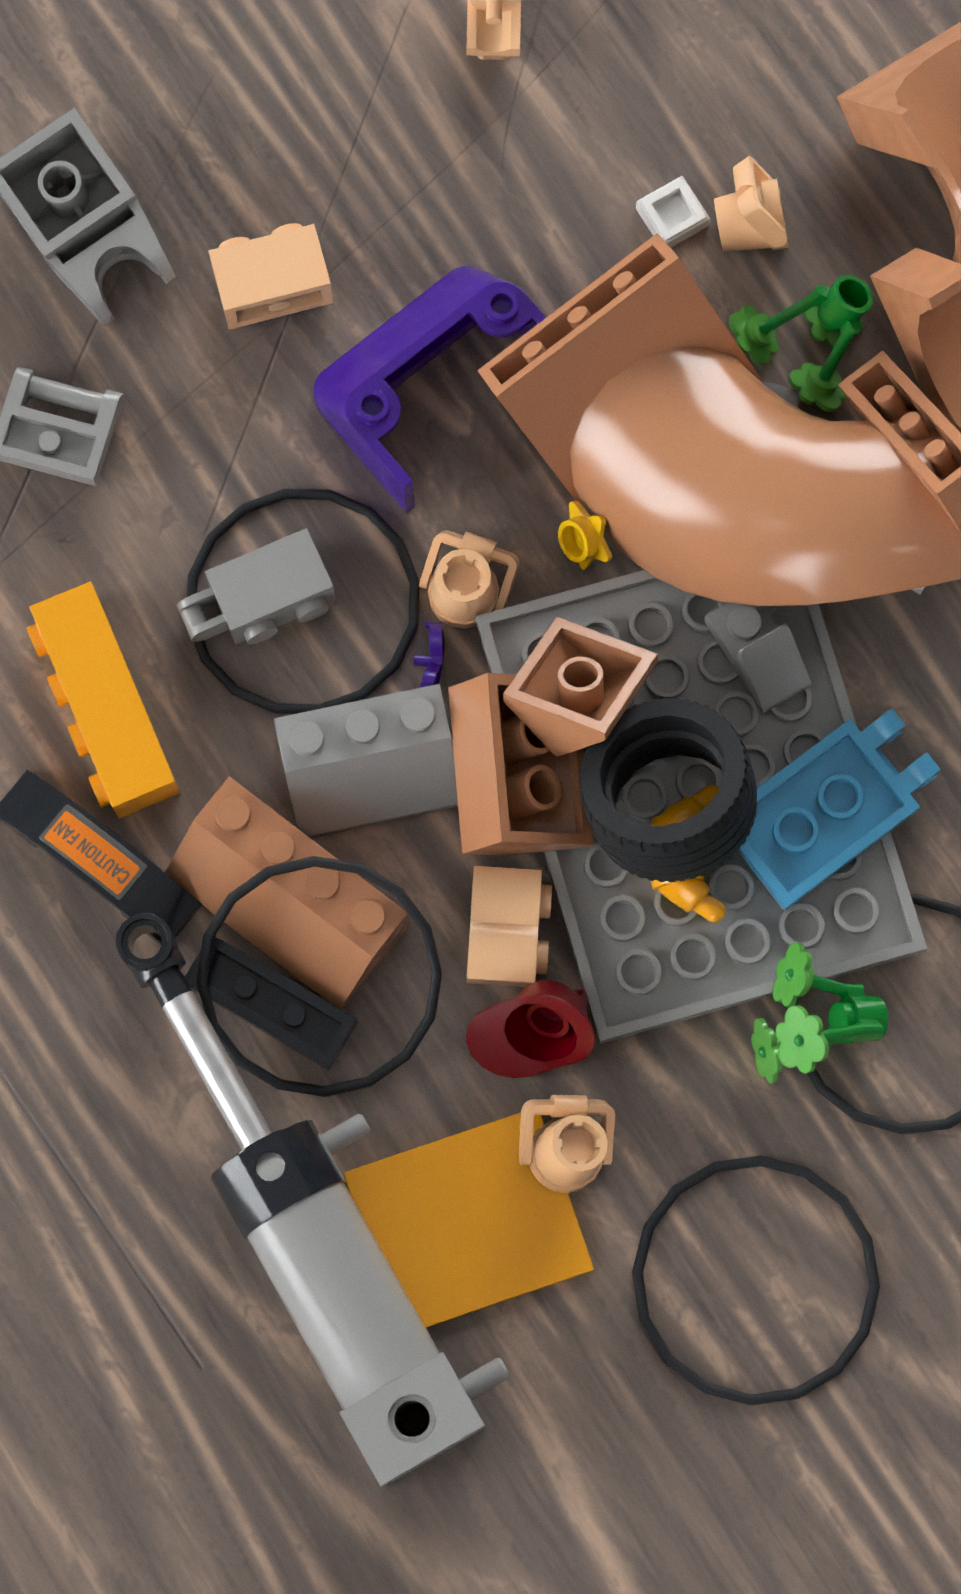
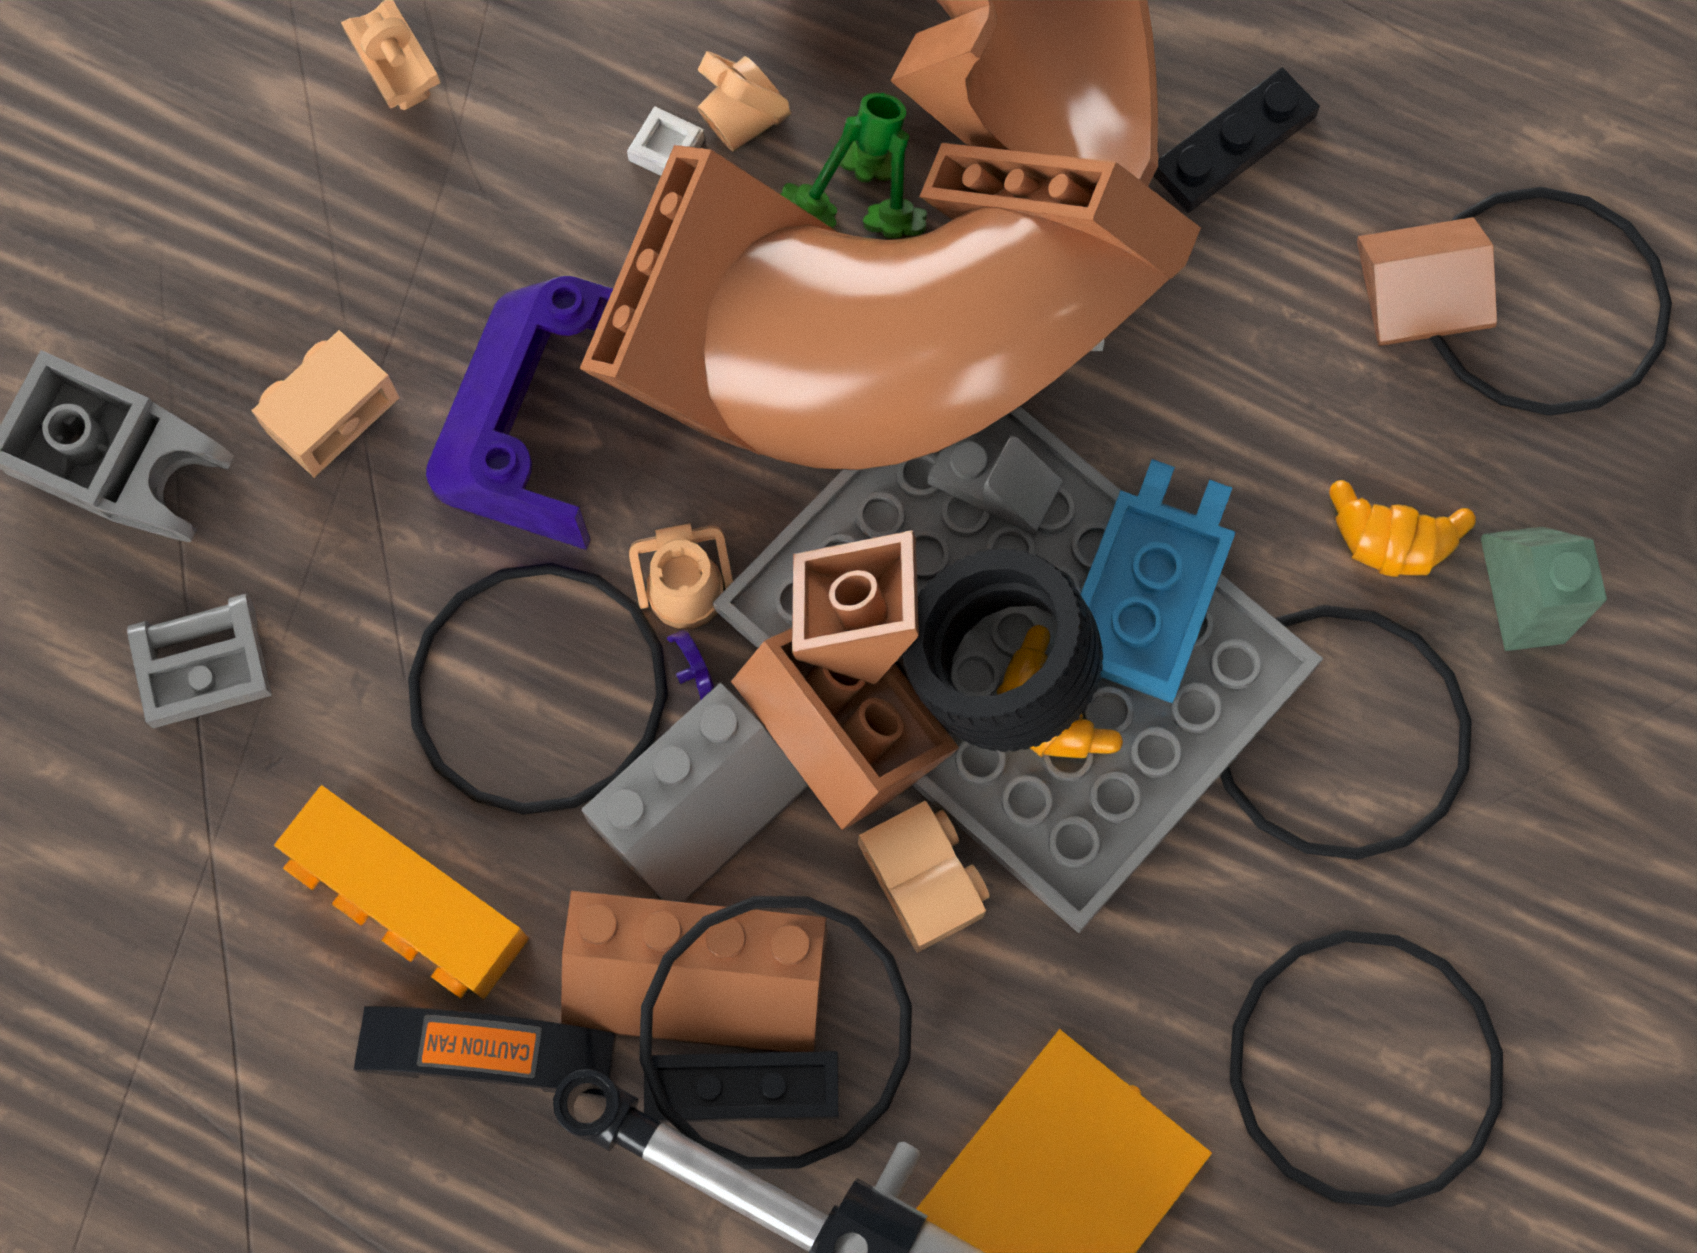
camera: 30 degrees left, 5 degrees down
(261, 592) = (494, 699): light grey brick -> none
(533, 1031) = (1014, 960): dark red piece -> none
(570, 1148) = (1117, 1049): light nougat piece -> none
(583, 537) = (760, 482): yellow plate -> none
(801, 1037) = (1277, 805): bright green plant -> none

